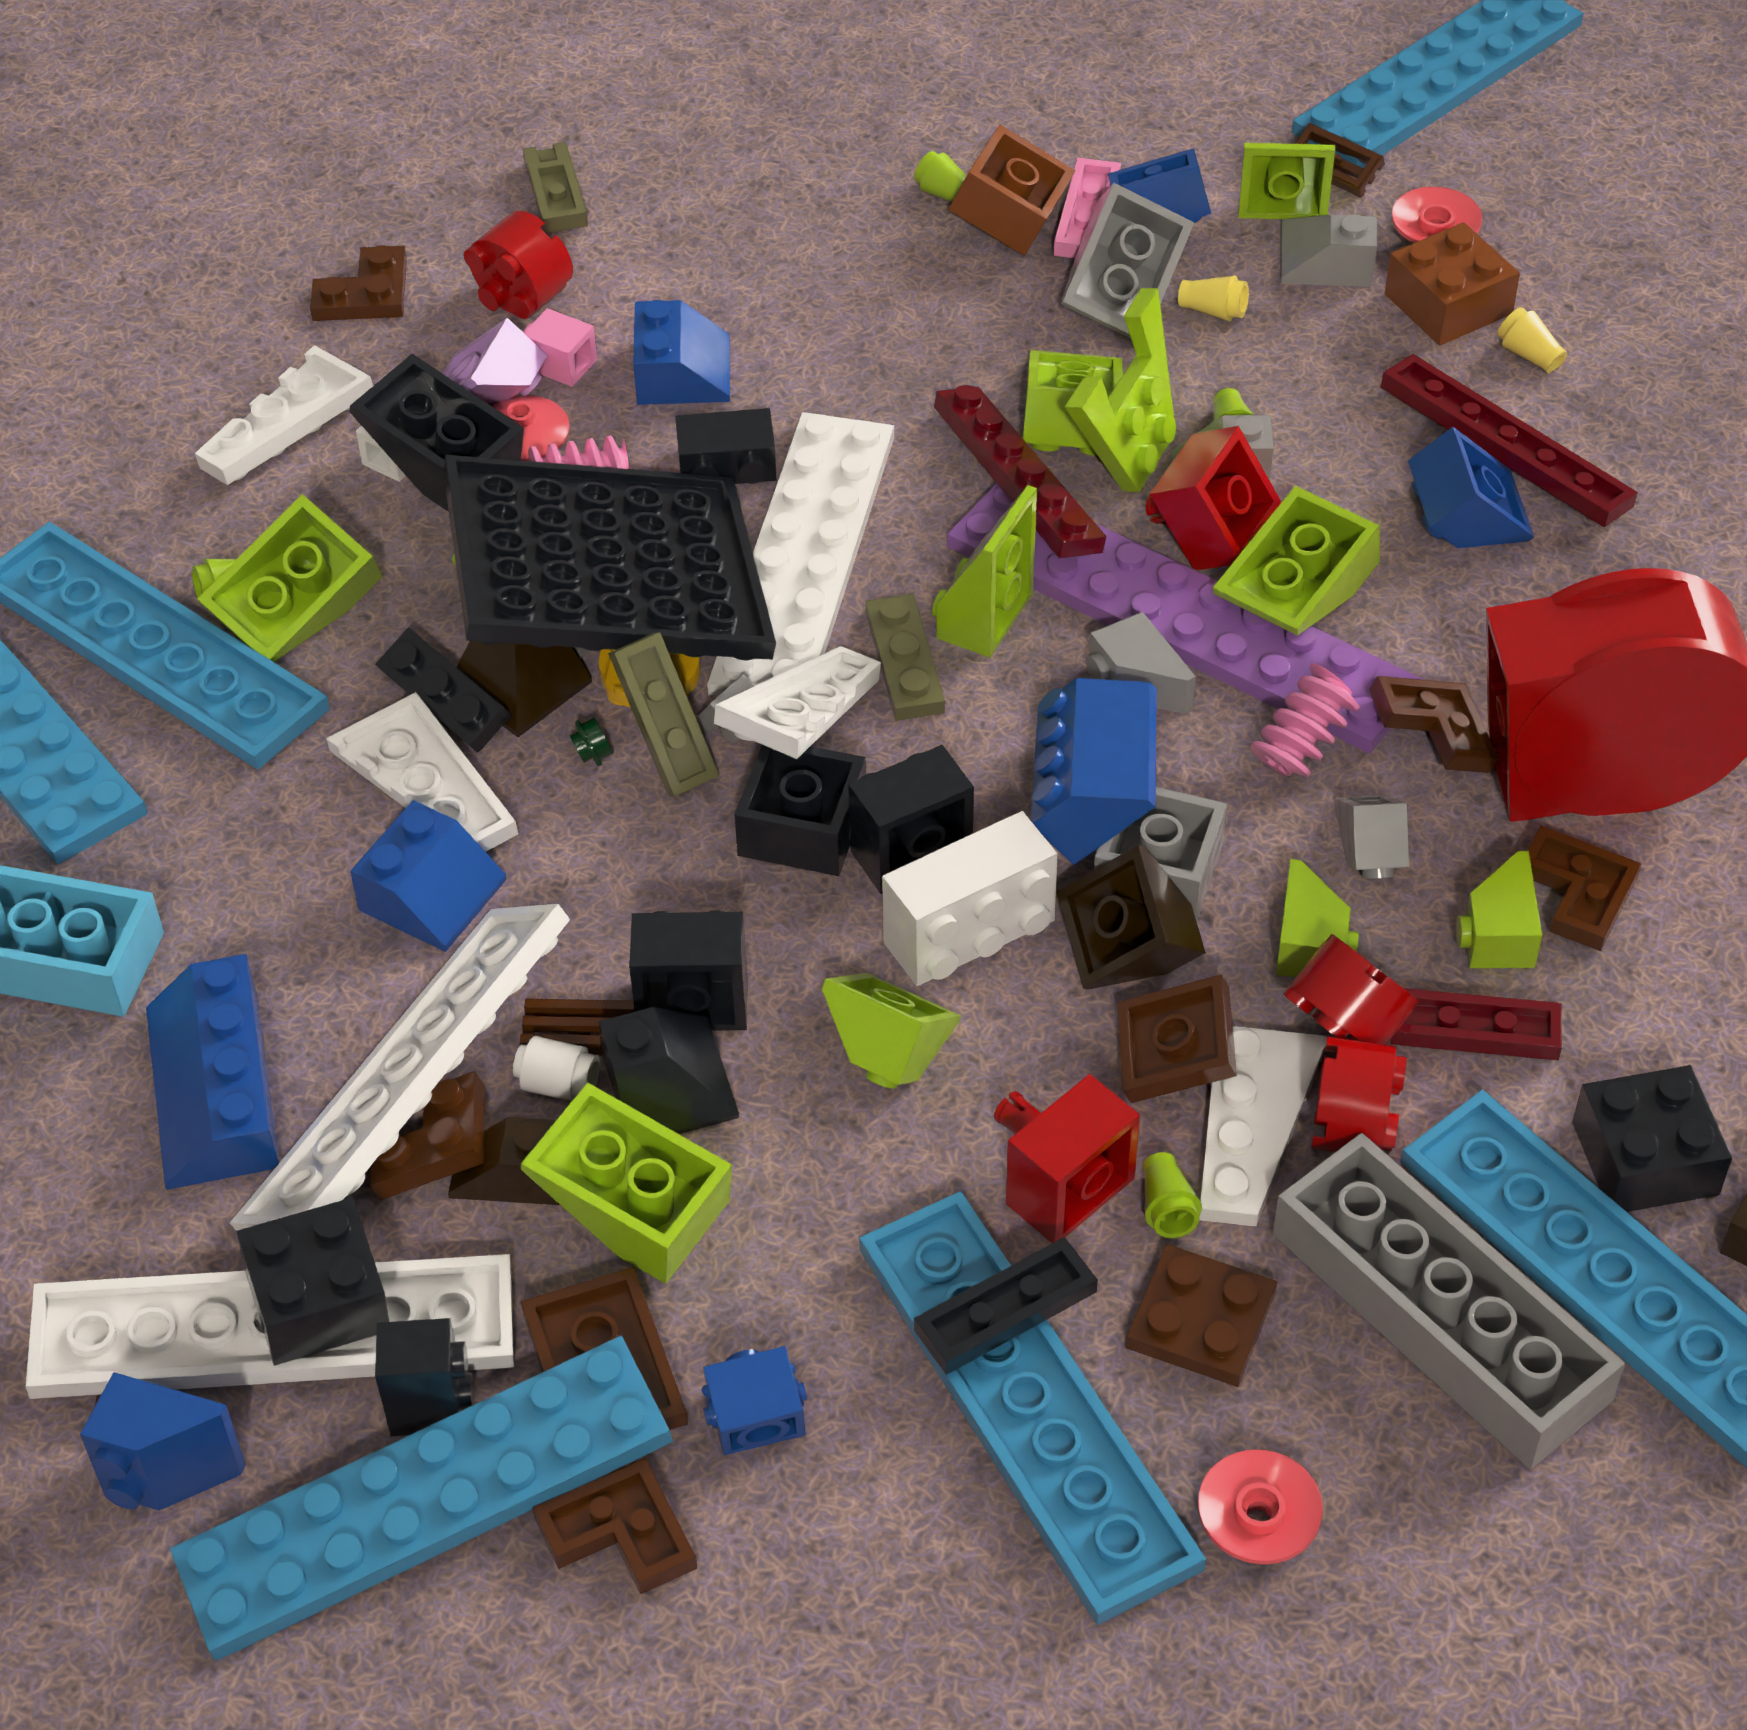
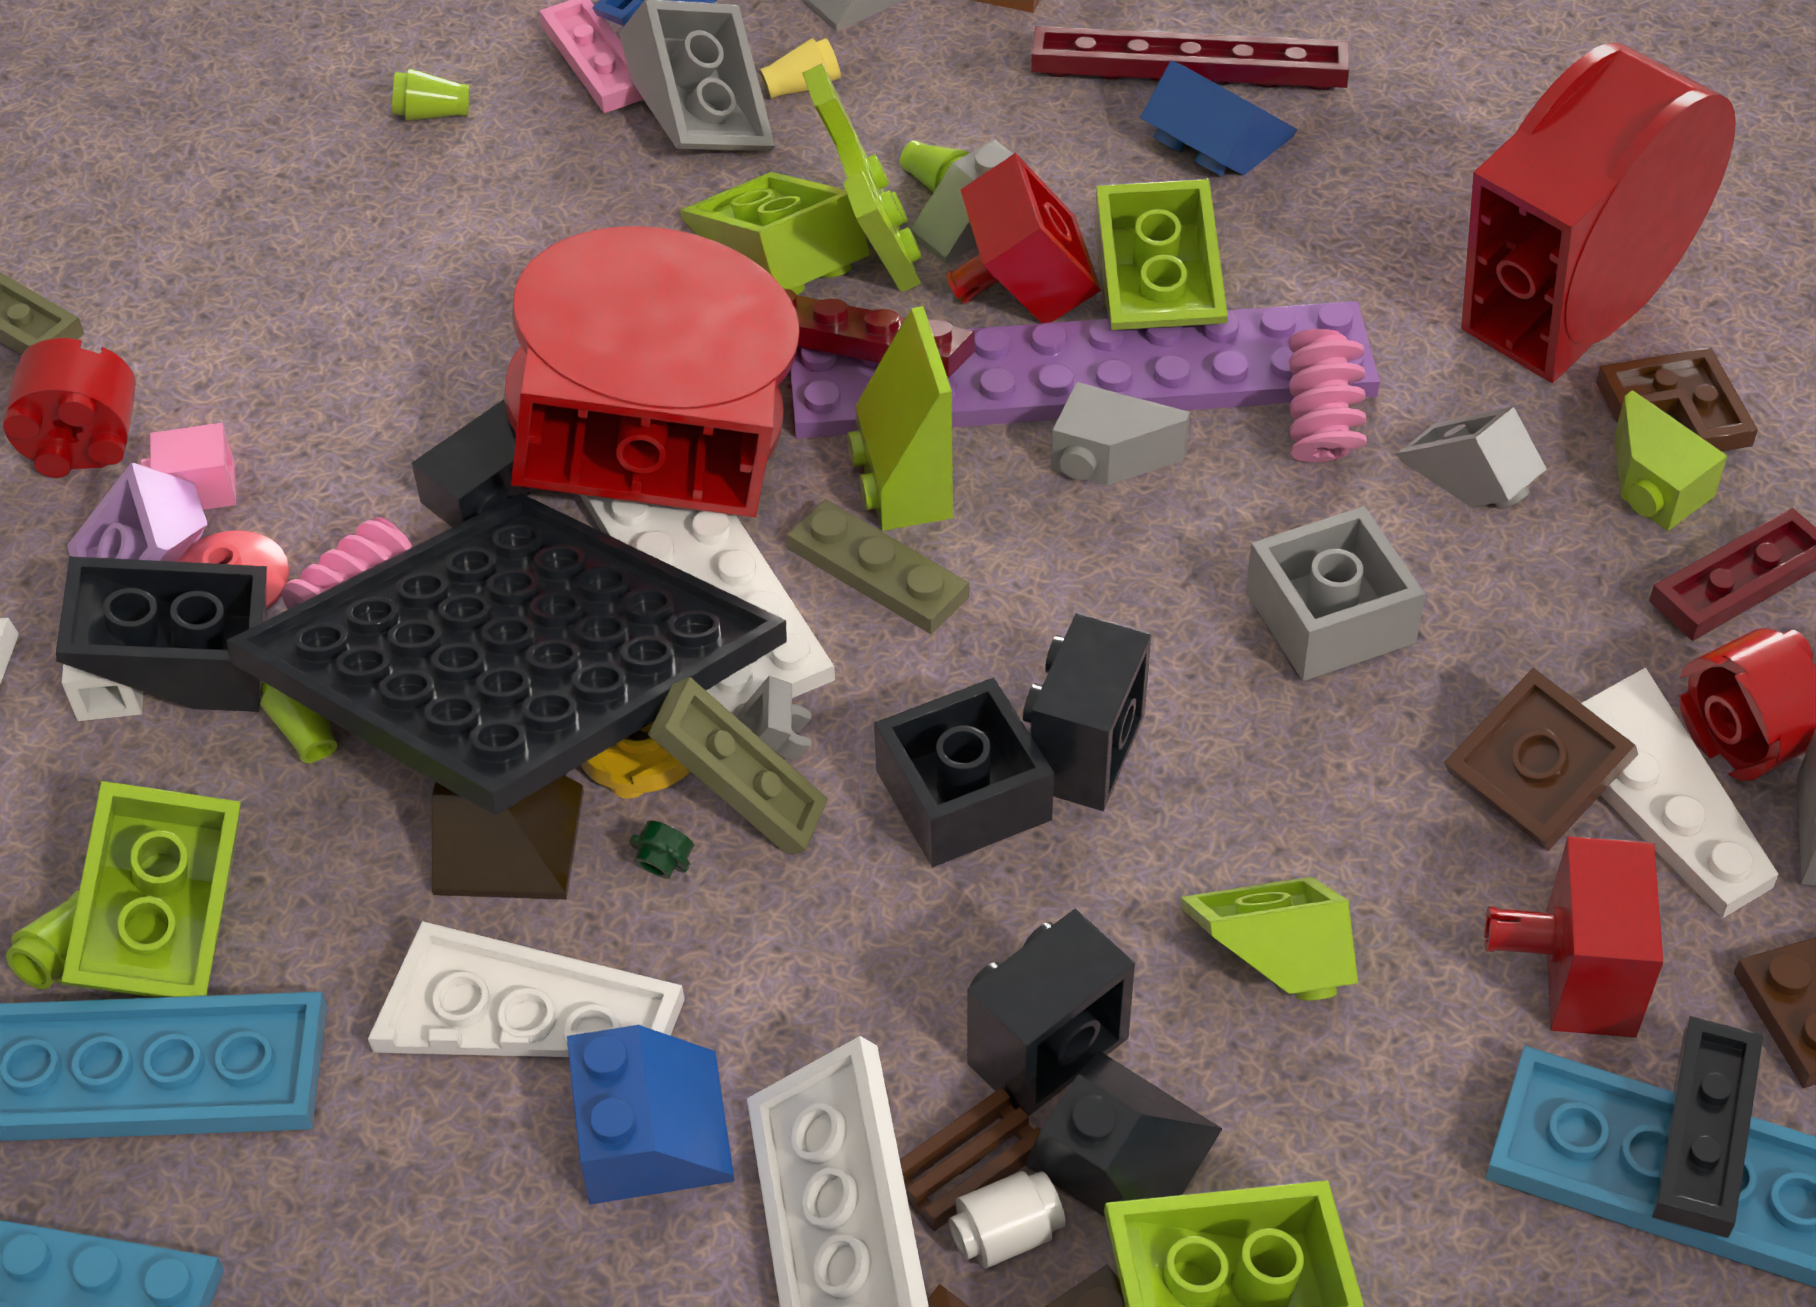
camera: 40 degrees left, 0 degrees up
(443, 689) = (468, 899): black plate -> none
(679, 355) = (330, 408): blue slope -> none
(800, 703) = (862, 668): white wing -> none
(858, 436) = (648, 370): none -> brick
(969, 898) = (1231, 753): white brick -> none
(1011, 190) = (520, 67): dark orange brick -> none
(1093, 762) = (1215, 542): blue slope -> none
(1128, 921) = (1377, 678): dark brown slope -> none
(1169, 1199) = (1699, 915): lime cone -> none
(1309, 919) = (1523, 576): lime slope -> none
(1350, 995) = (1655, 610): red brick -> none
(1442, 710) = (1408, 317): reddish brown plate -> none

